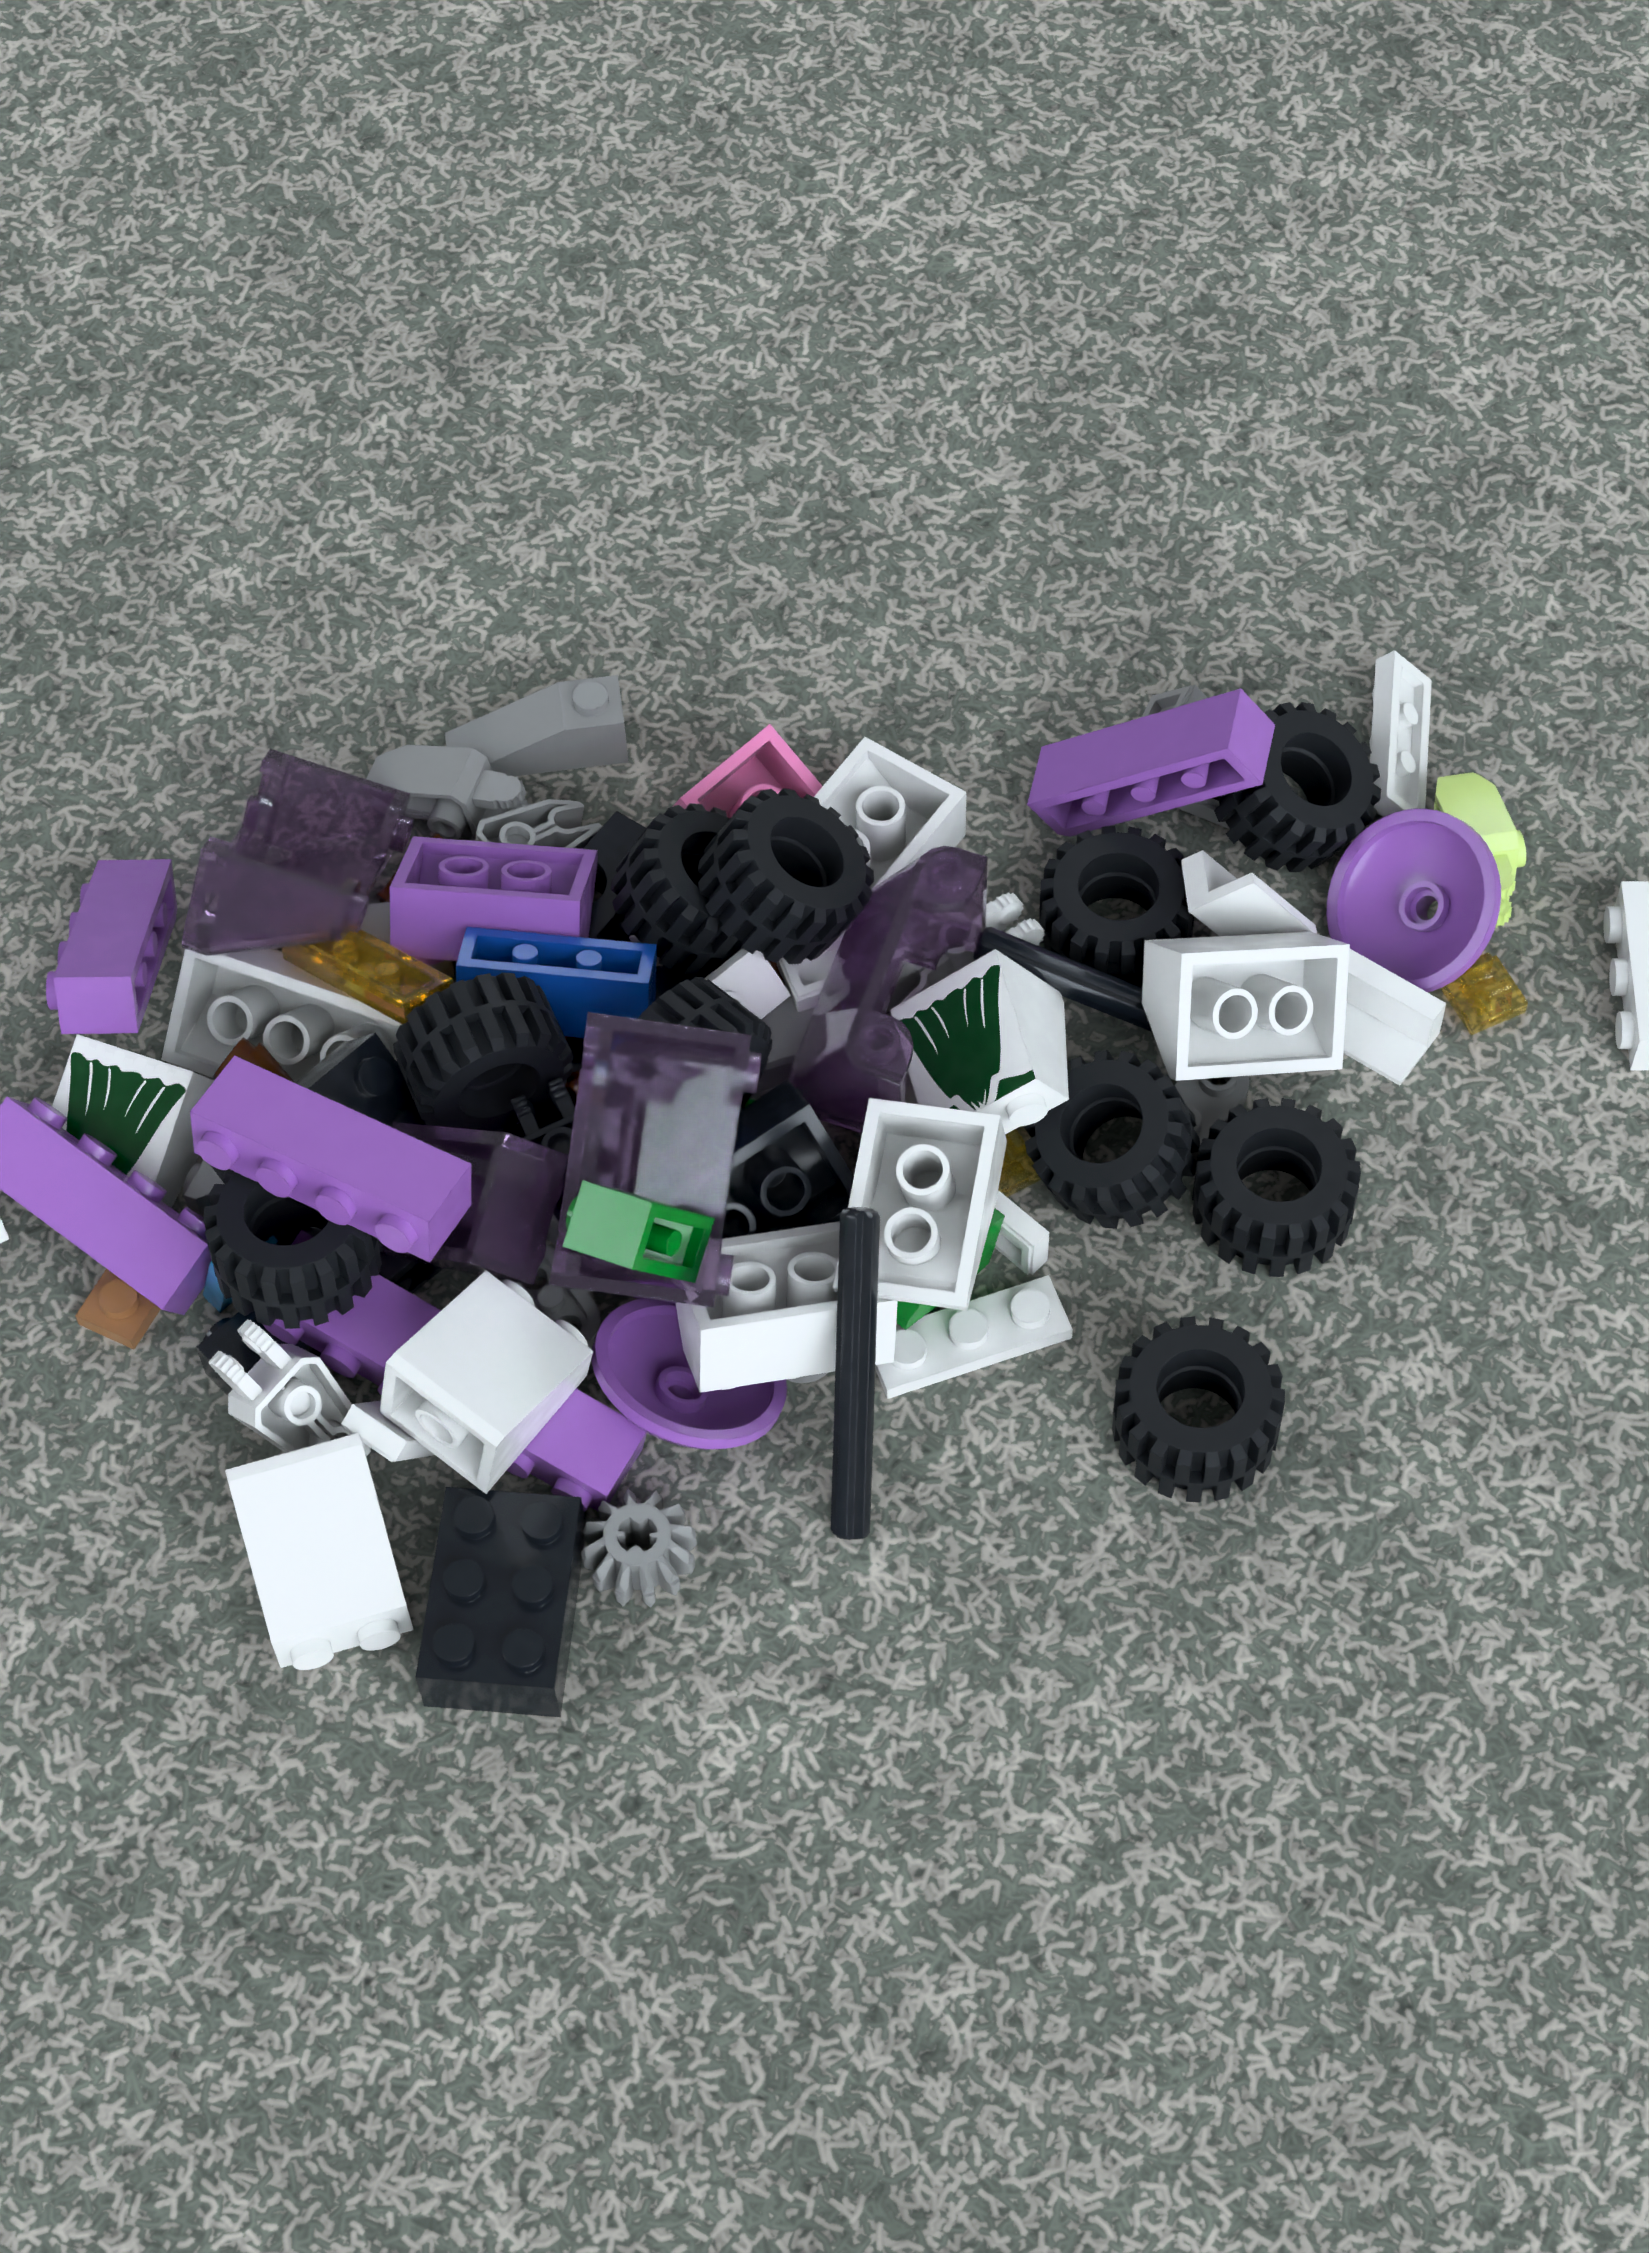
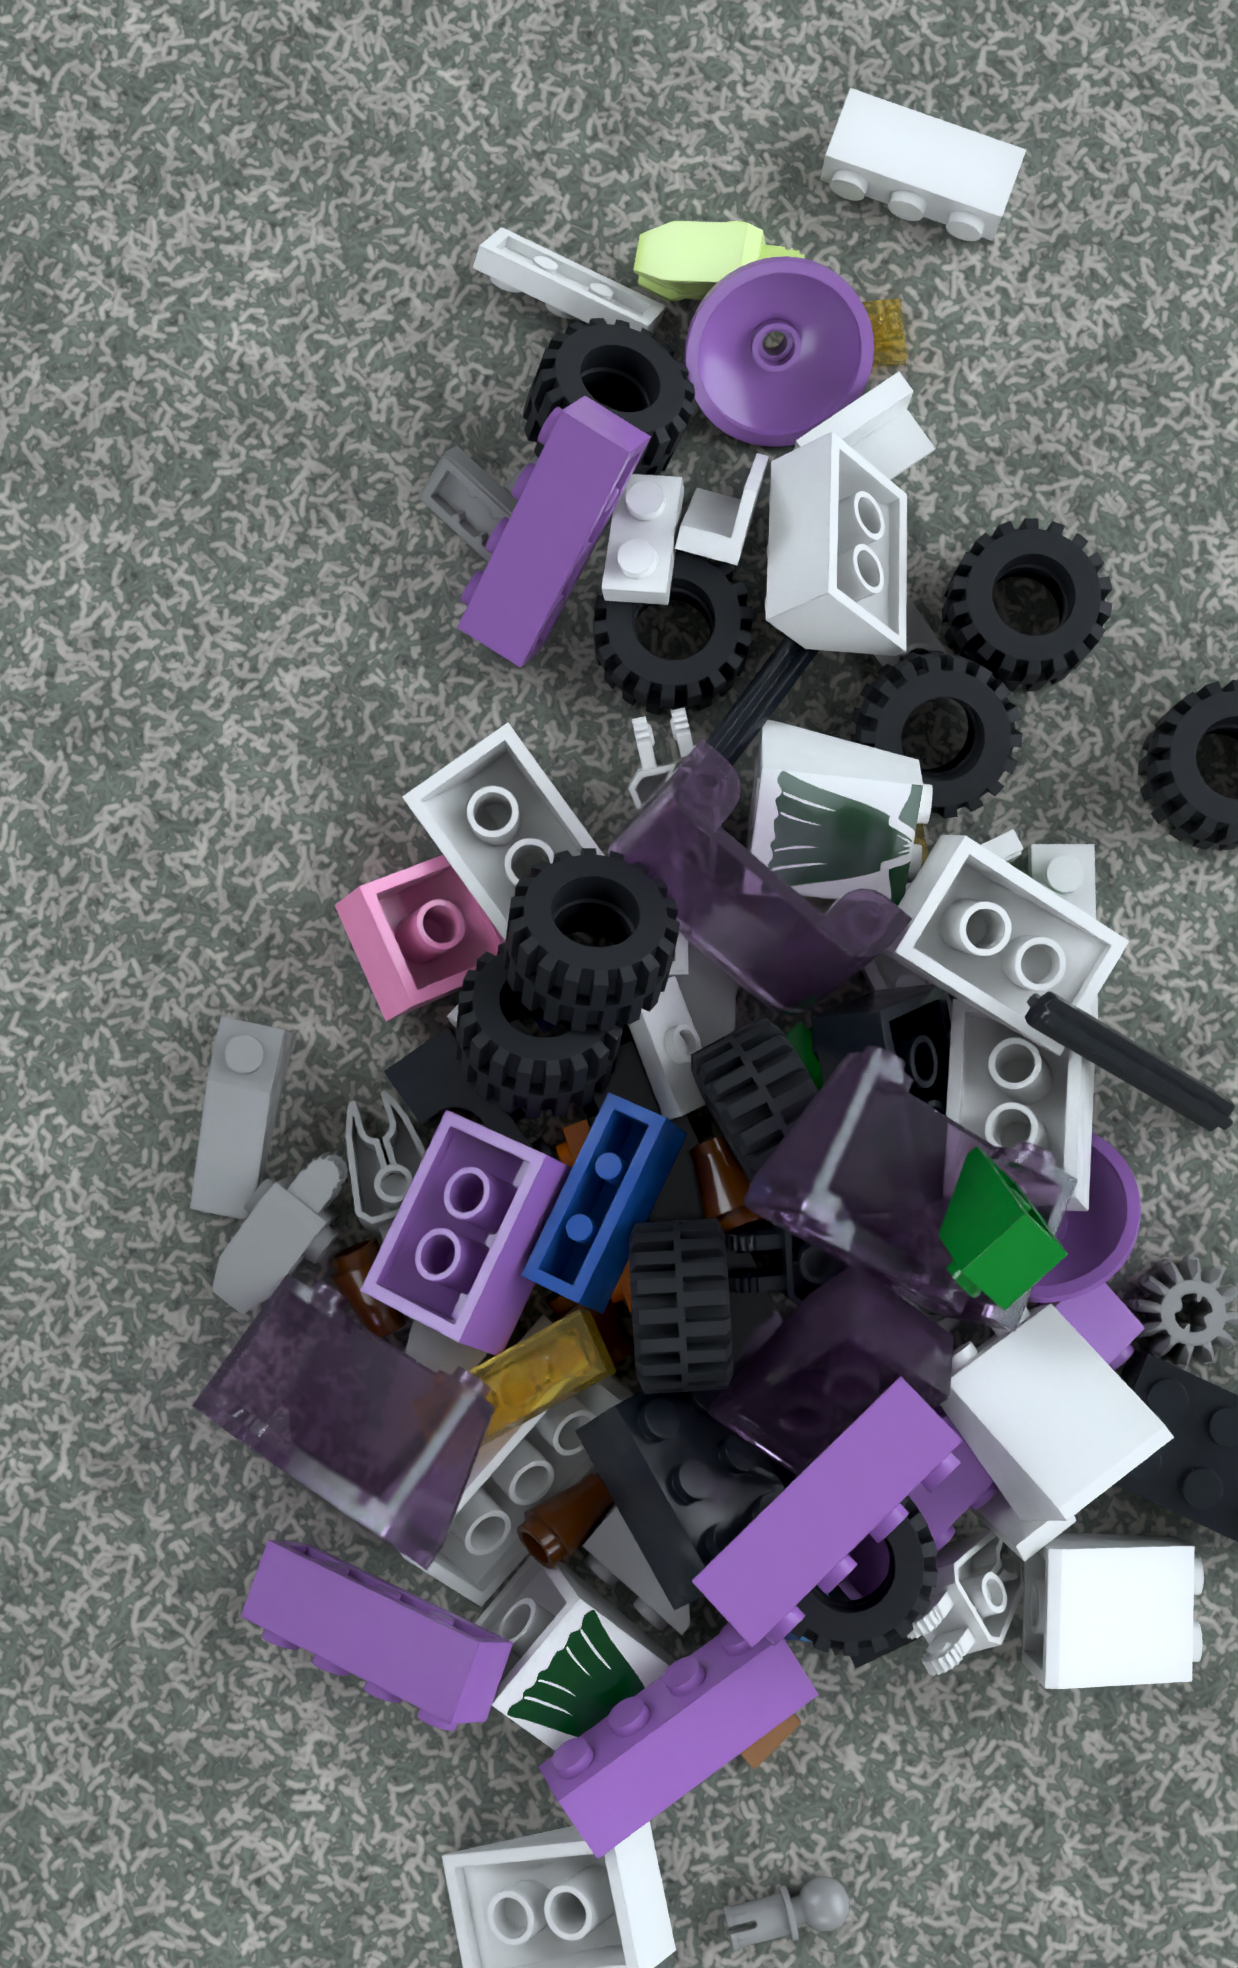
camera: 75 degrees left, 25 degrees up
(1164, 836) = (643, 540): none -> white plate

